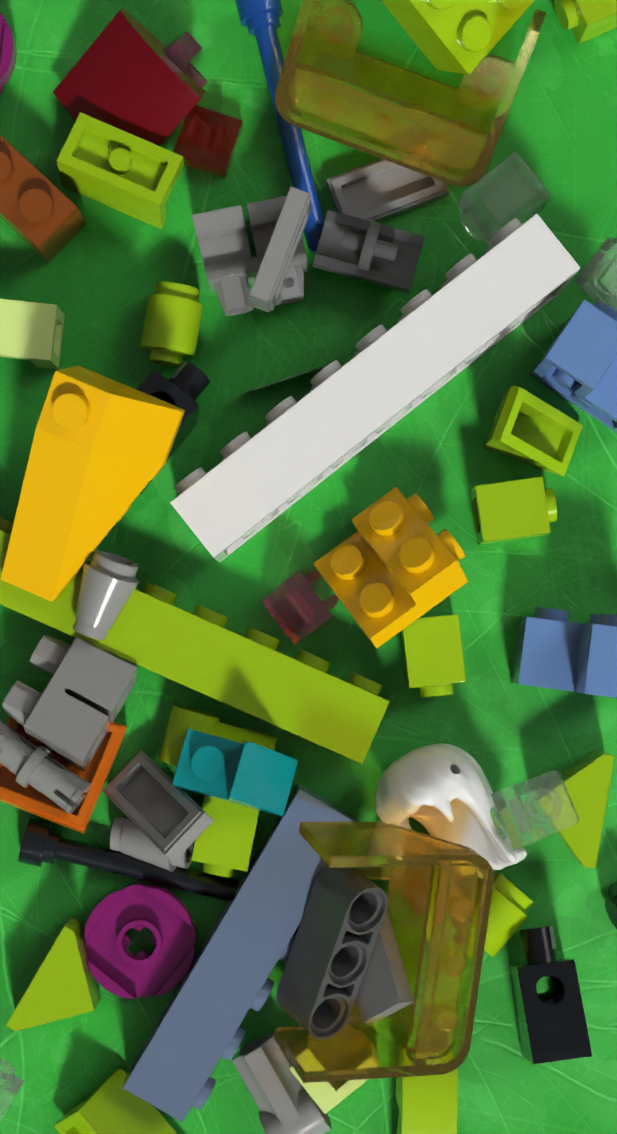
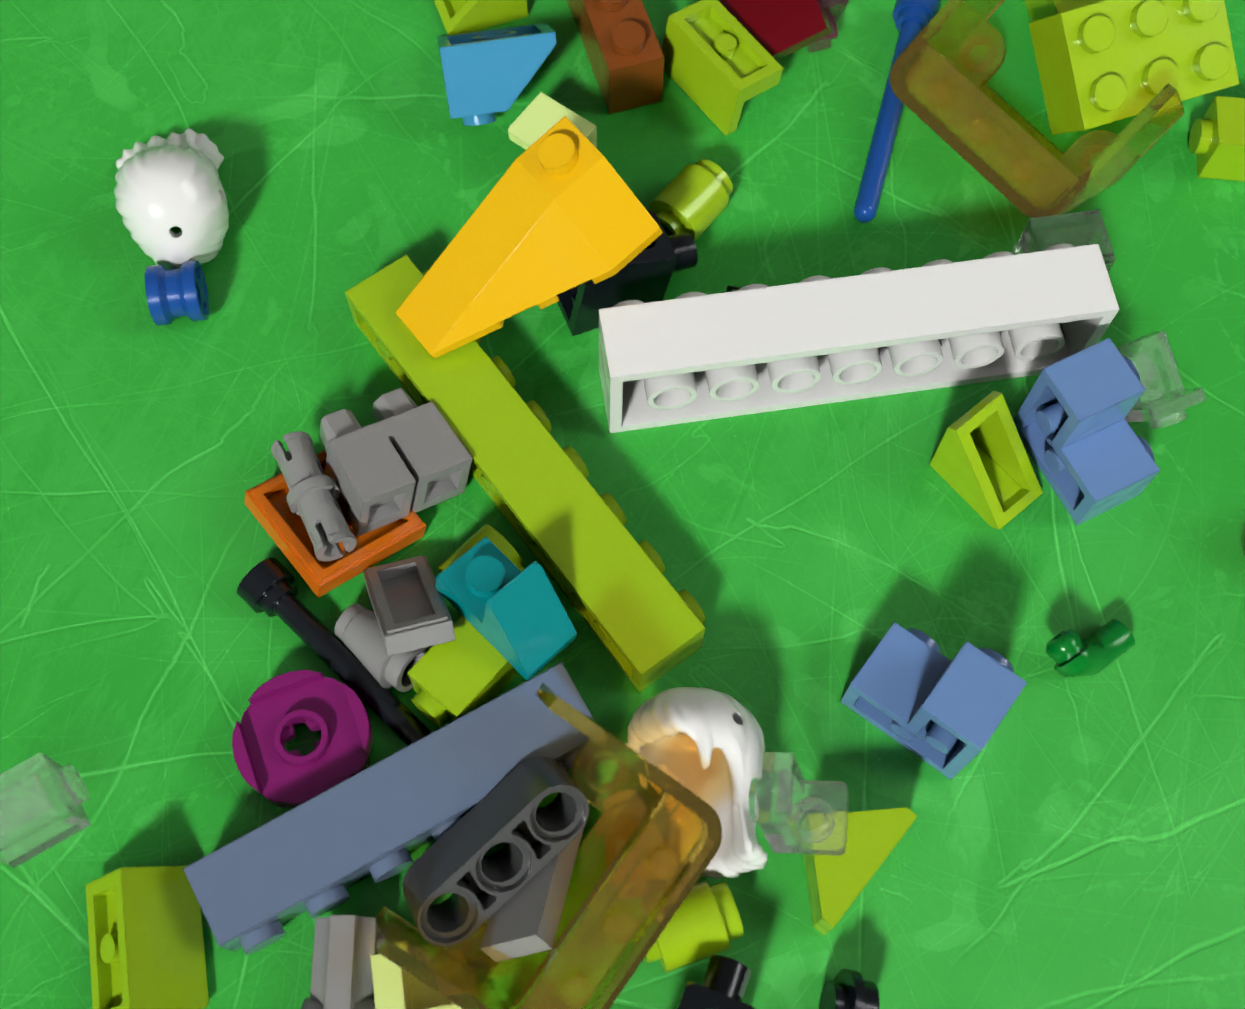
camera: 30 degrees right, 20 degrees down
(61, 985) = (193, 729): lime slope -> none
(103, 593) = (484, 368): light grey cone -> none
(209, 140) = (811, 86): clear red tile -> none
(229, 259) = (776, 188): light grey hips -> none
(281, 250) = (829, 169): light grey tile -> none
(298, 606) = (664, 501): clear pink tile -> none
(368, 251) = (909, 225): dark grey hips -> none
(383, 191) = (952, 201): light grey tile -> none
(393, 566) = (785, 509): yellow plate -> none
(433, 655) = (774, 615): lime brick -> none
(512, 510) = (931, 525): lime brick -> none

